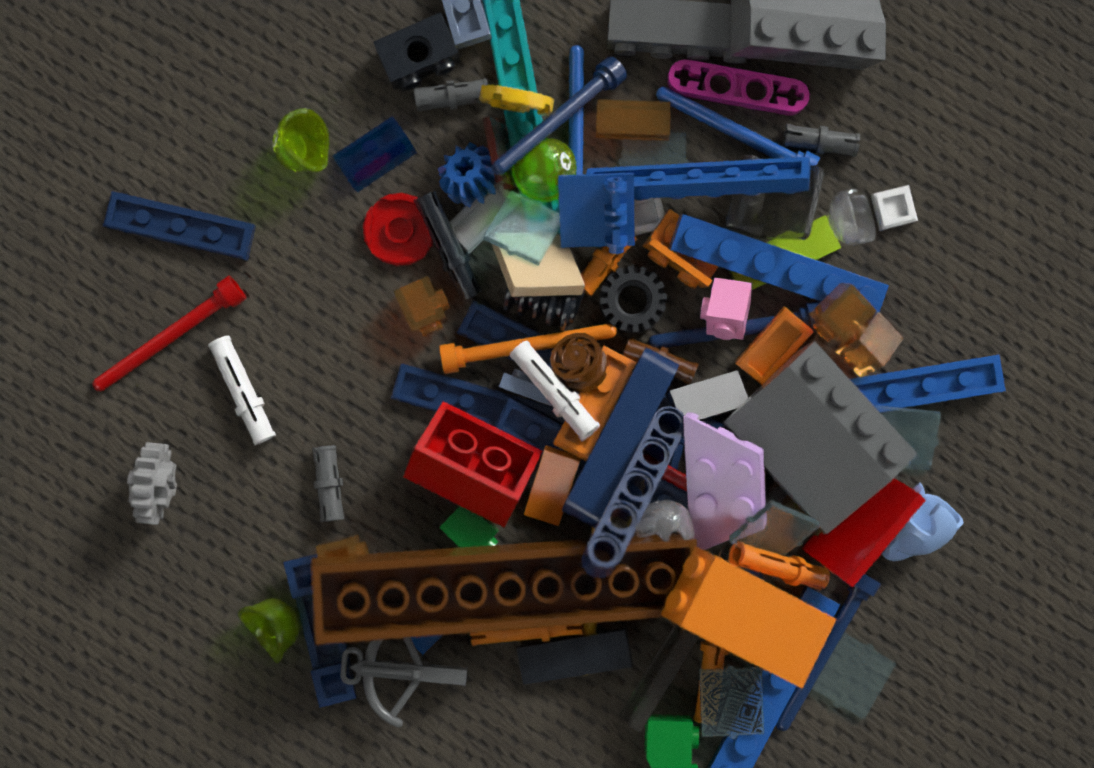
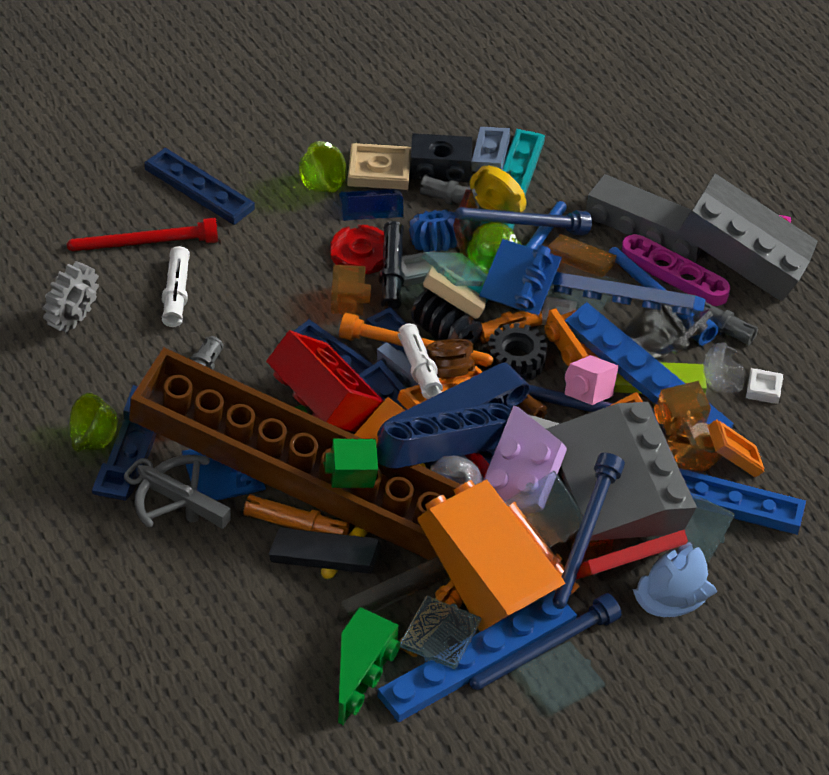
camera: 25 degrees right, 40 degrees down
(355, 95) = (379, 166): none -> tan tile
(572, 598) = (352, 463): none -> green brick
(820, 467) = (607, 469): none -> dark blue piece
(909, 328) = (736, 448): none -> orange tile

